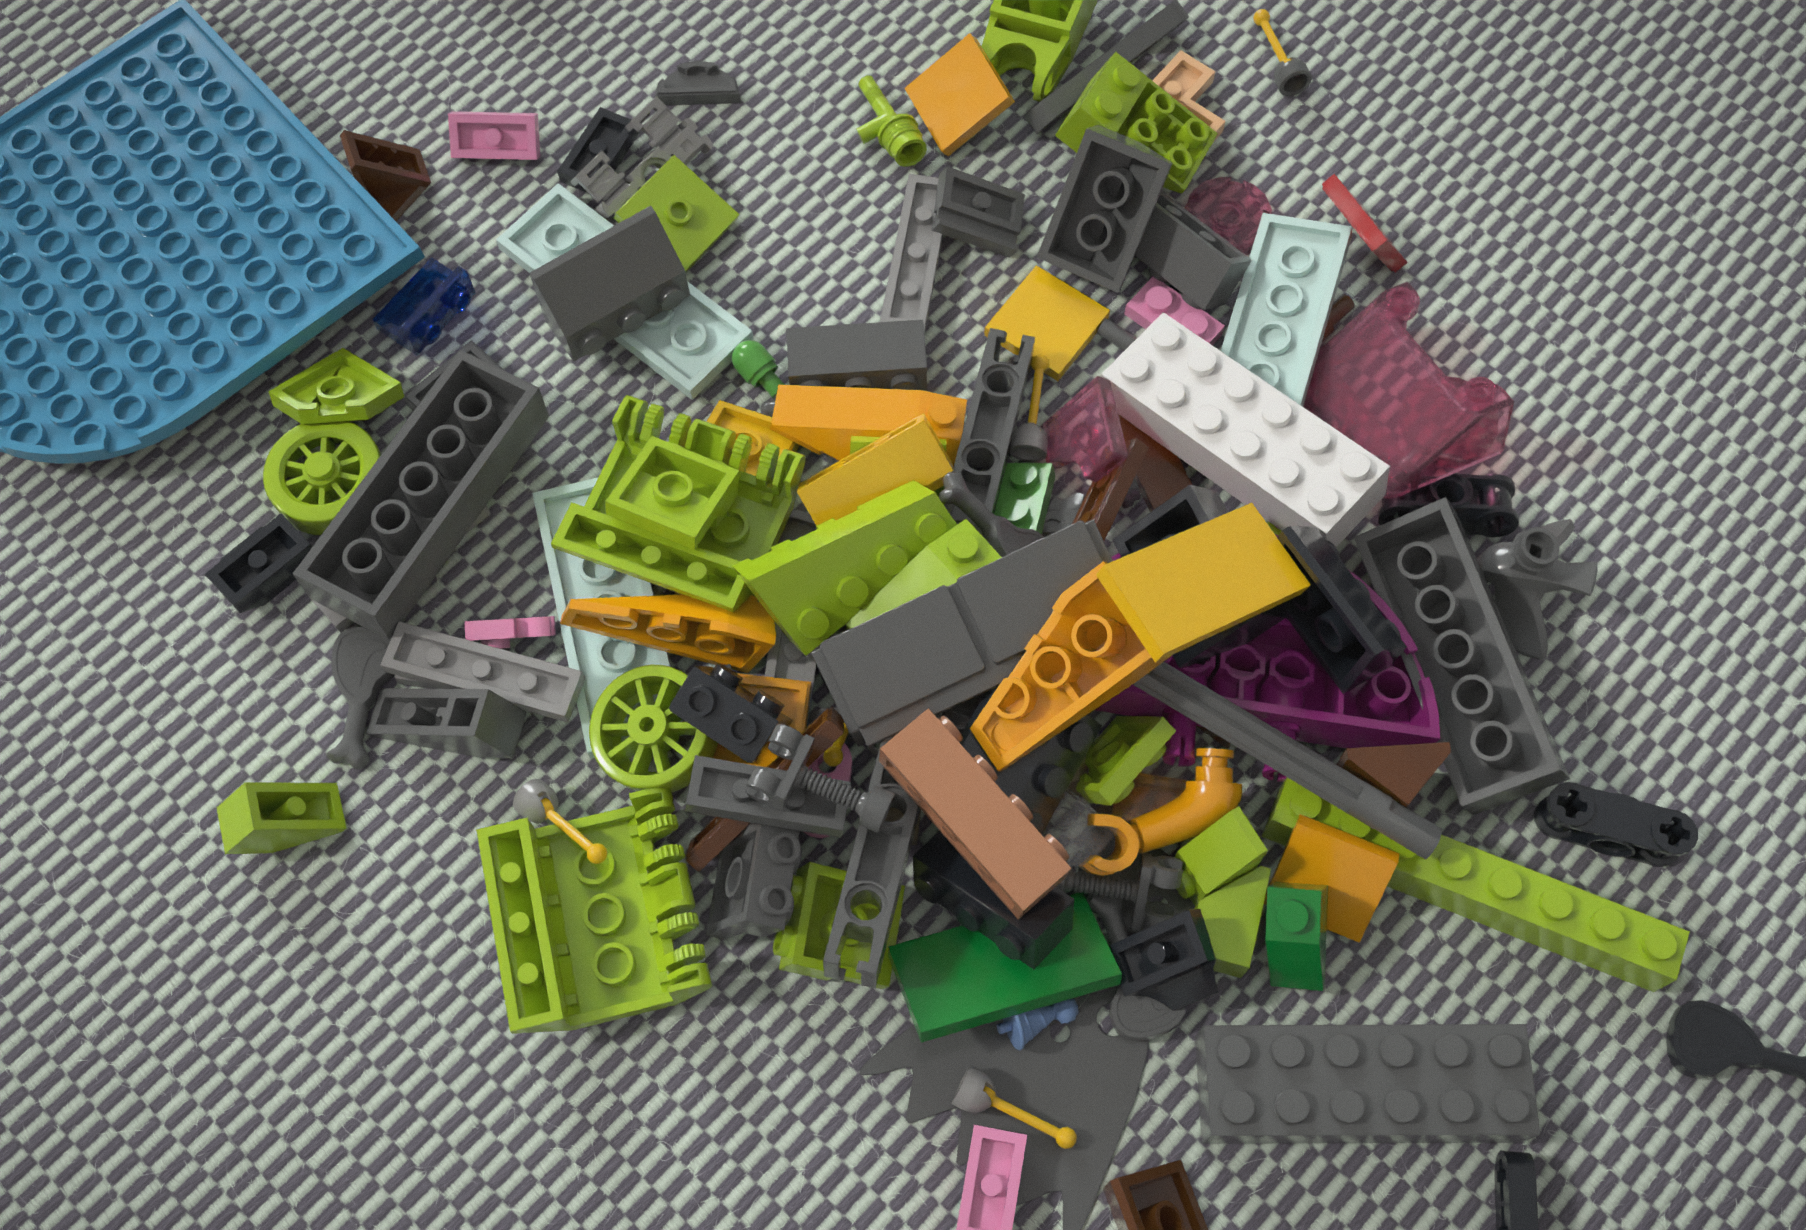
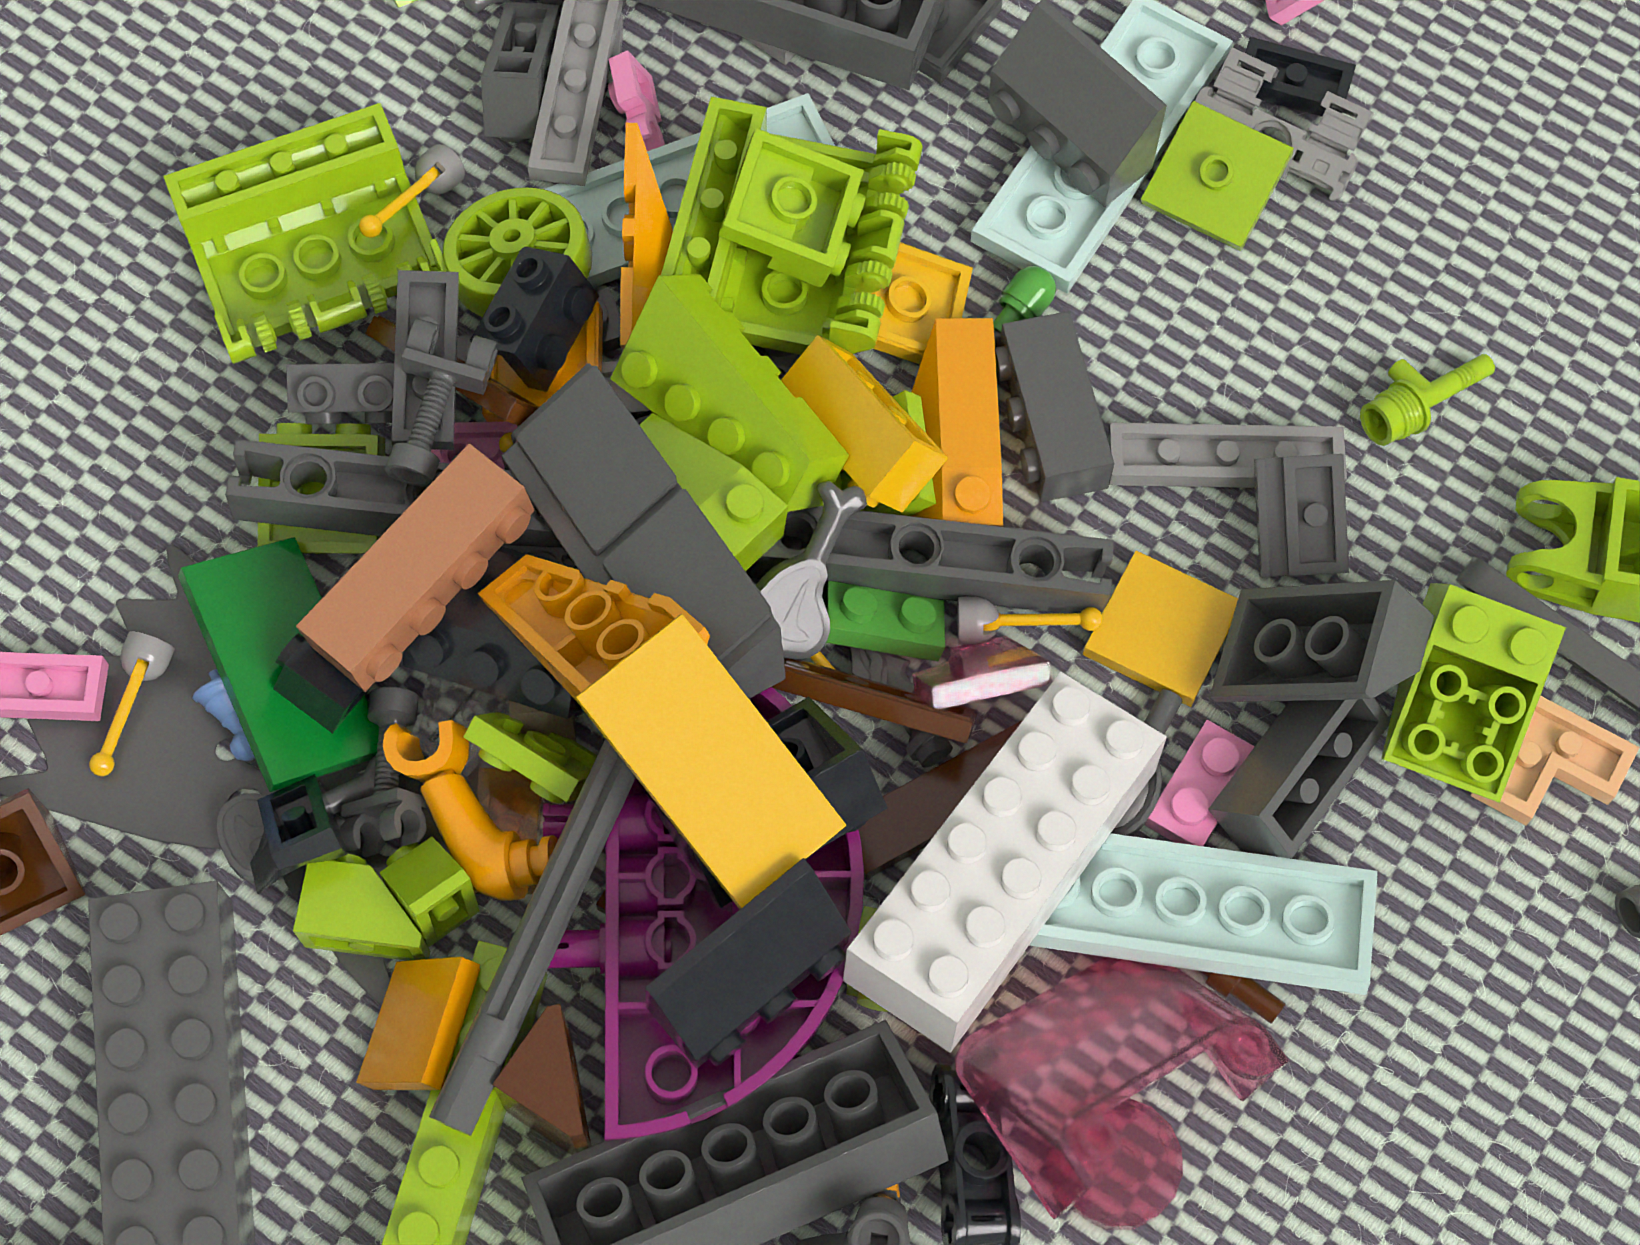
camera: 80 degrees right, 0 degrees up
(698, 84) = (1430, 172): dark grey tile -> none
(959, 94) = (1482, 469): light orange tile -> none
(1230, 209) = (1390, 834): clear pink tile -> none
(1296, 935) = (350, 985): green slope -> none
(1363, 223) = (1392, 1012): tile -> none

